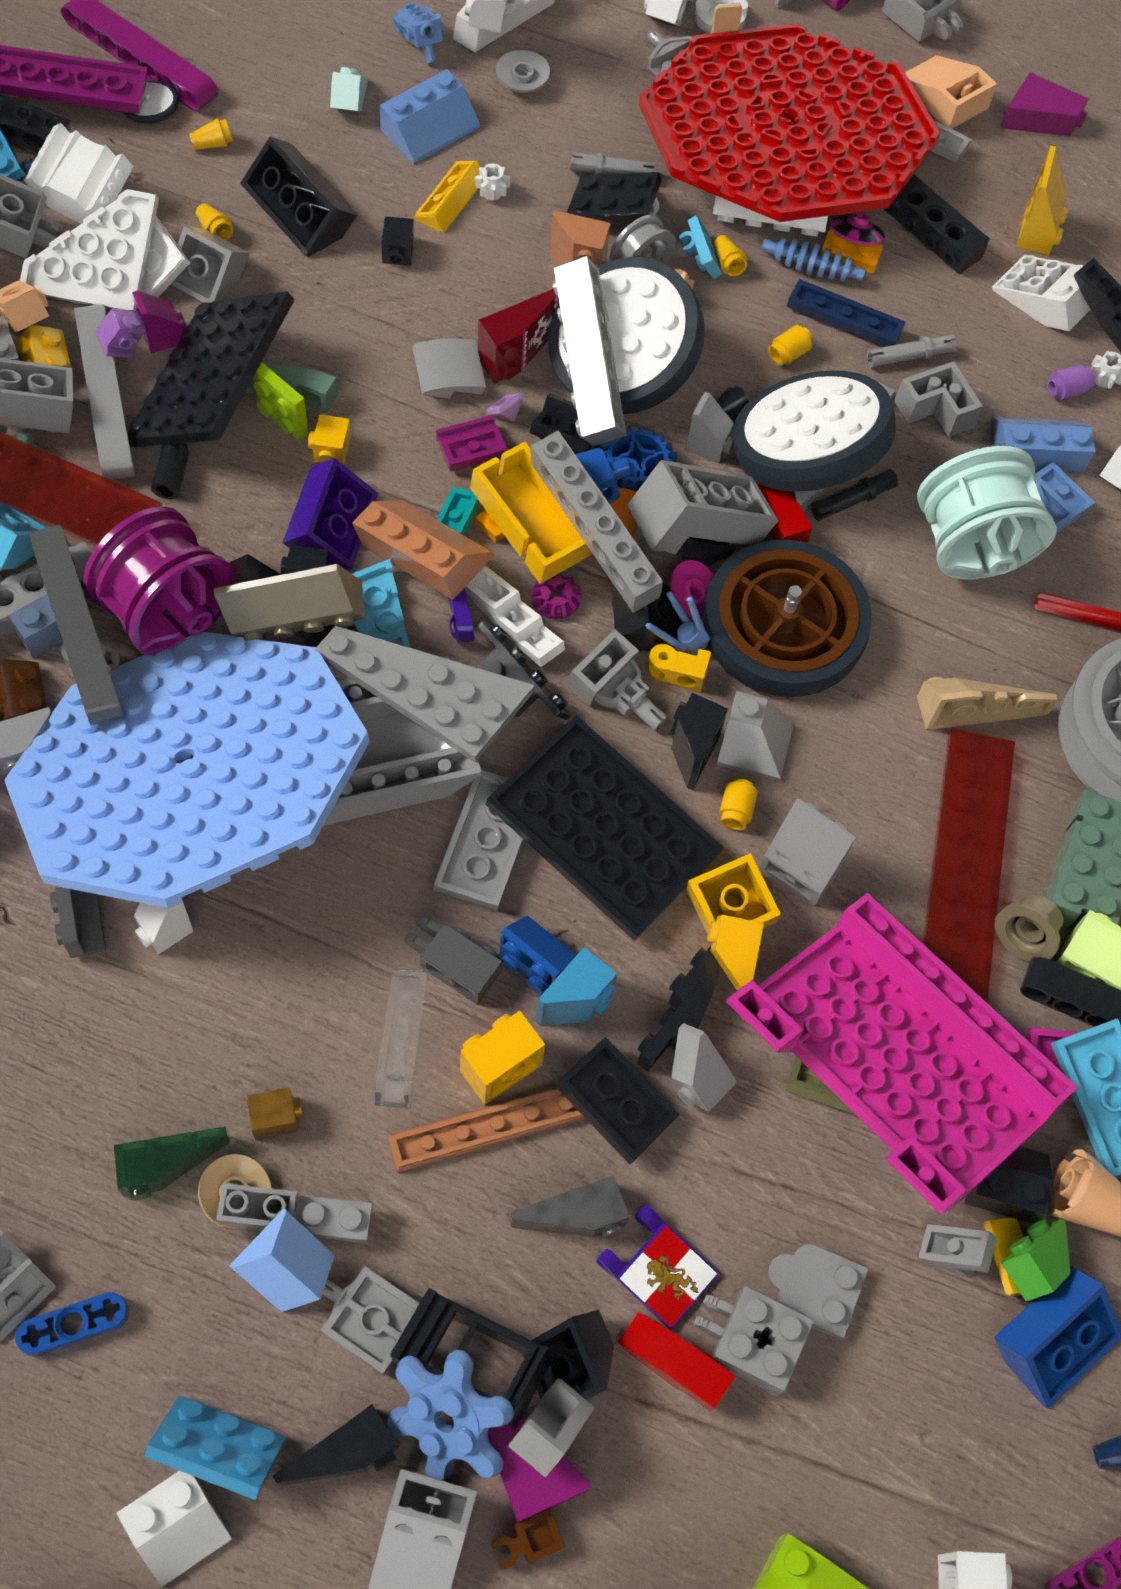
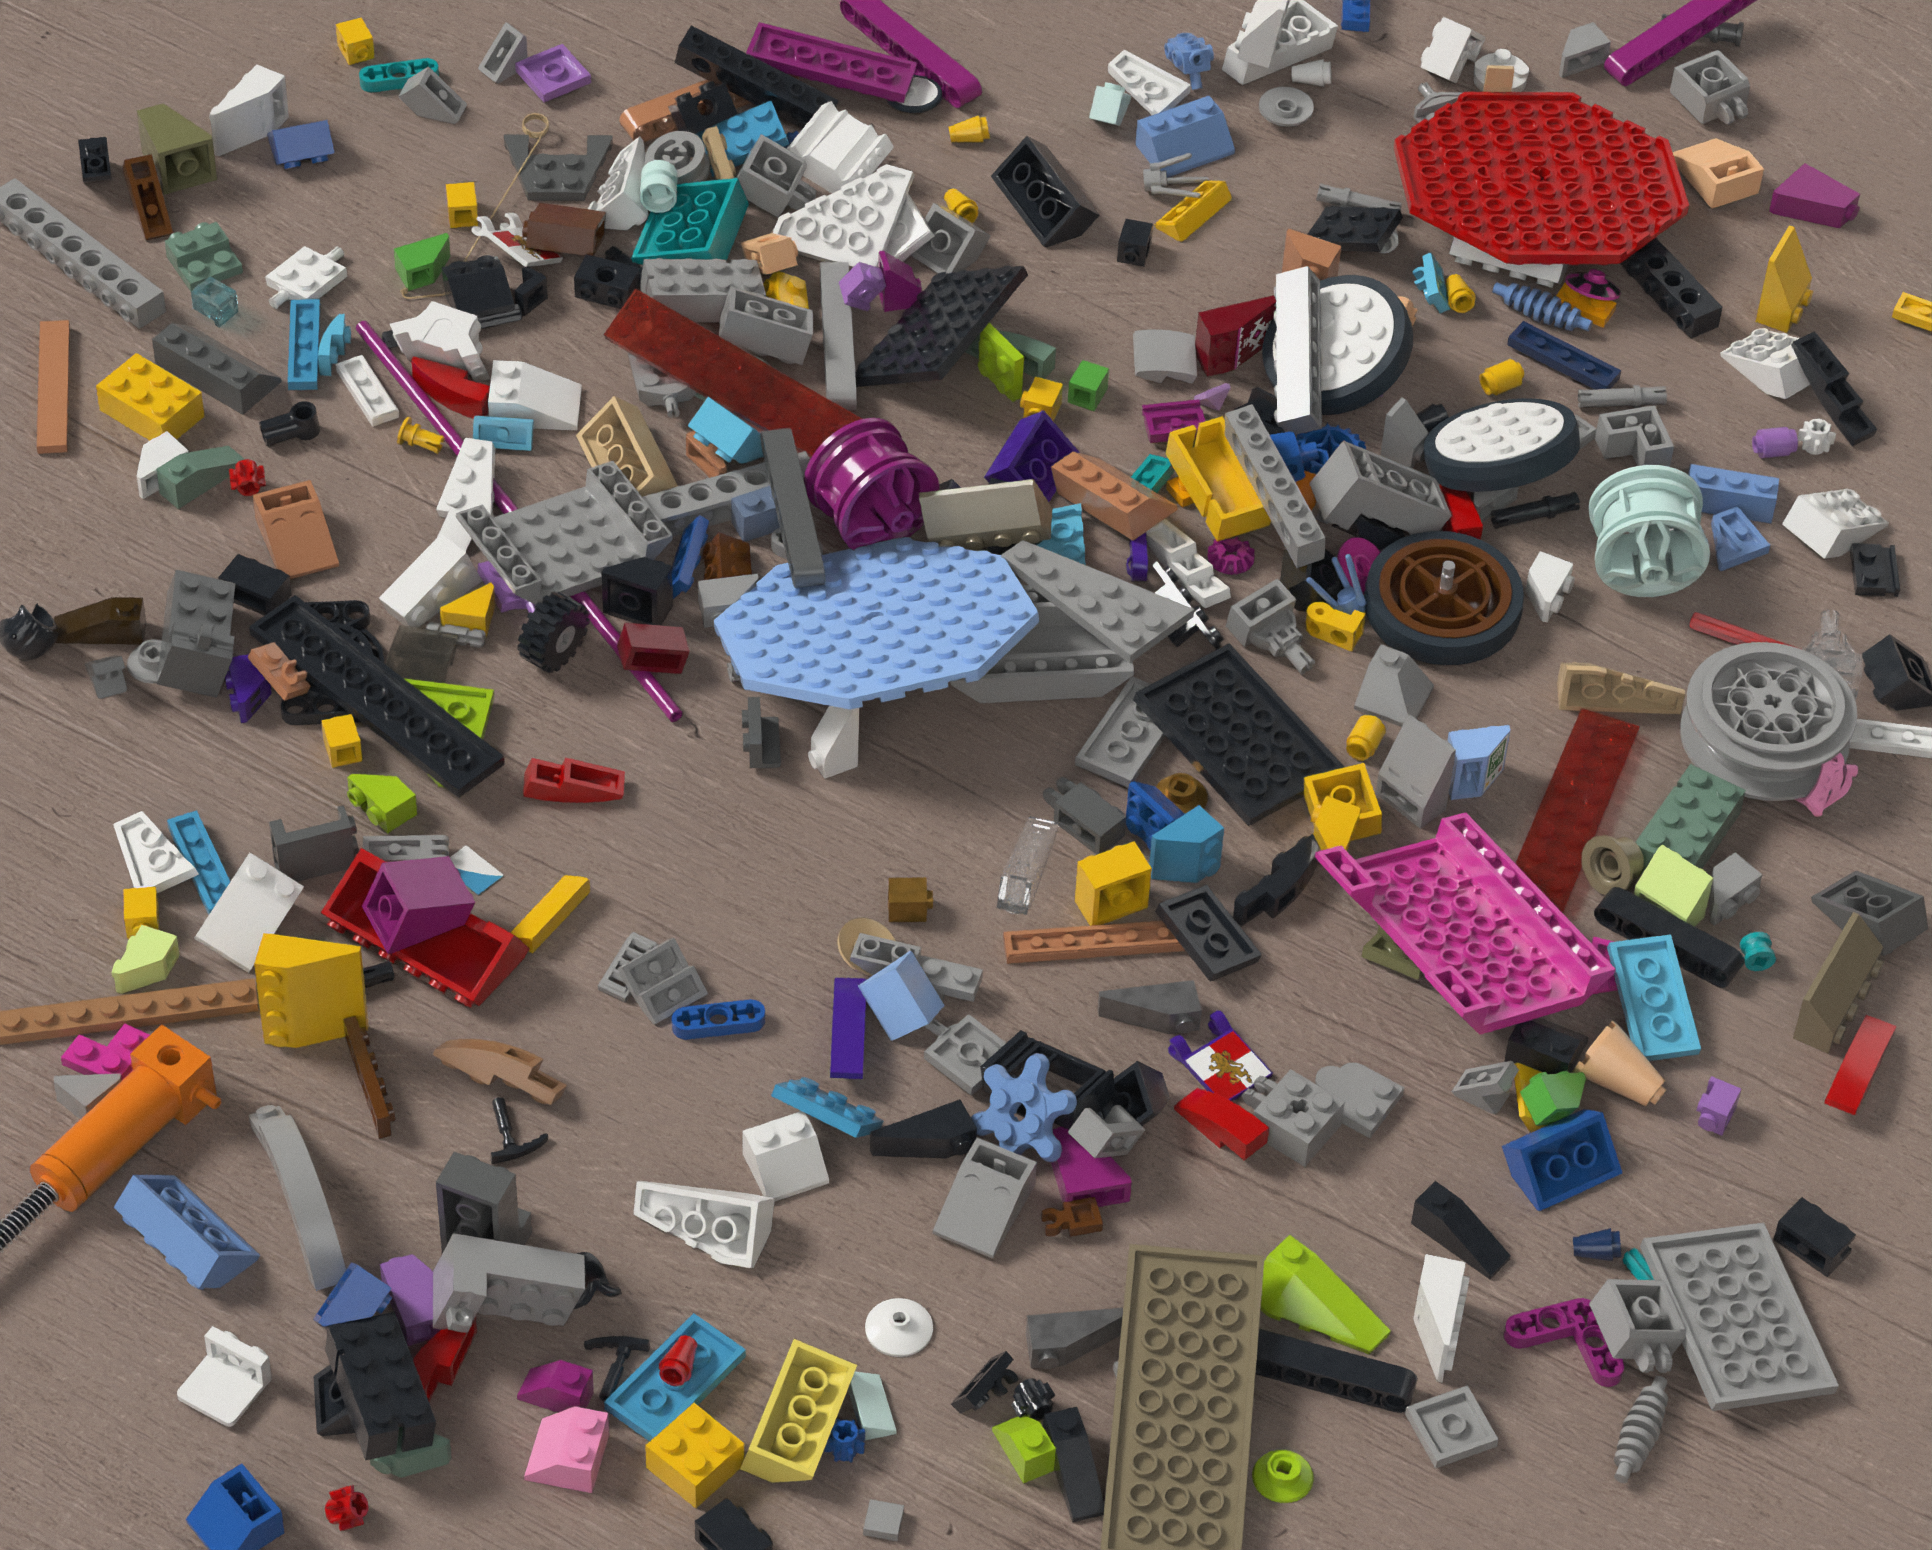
camera: 15 degrees right, 15 degrees down
(158, 1162) = (812, 917): clear green slope -> none
(170, 470) = (891, 402): black wheel -> none
(226, 1316) = (848, 1029): none -> dark purple slope
(375, 413) = (1088, 385): none -> bright green brick
(382, 62) = (1147, 83): none -> white wing
(408, 167) = (1156, 180): none -> light grey plant
(492, 181) = (1237, 201): white gear -> none
(541, 32) = (1312, 73): none -> white cone
(558, 922) = (1193, 791): none -> pearl gold piece
(644, 239) = (1375, 262): light grey wheel -> none
(695, 735) = (1338, 675): black slope -> none
(699, 1069) = (1285, 919): light grey slope -> none
(864, 815) = (1477, 759): none -> light blue slope
(885, 581) = (1547, 583): none -> white slope
(950, 143) = (1705, 217): light grey plate -> none
(969, 1465) = (1458, 1229): none -> black slope

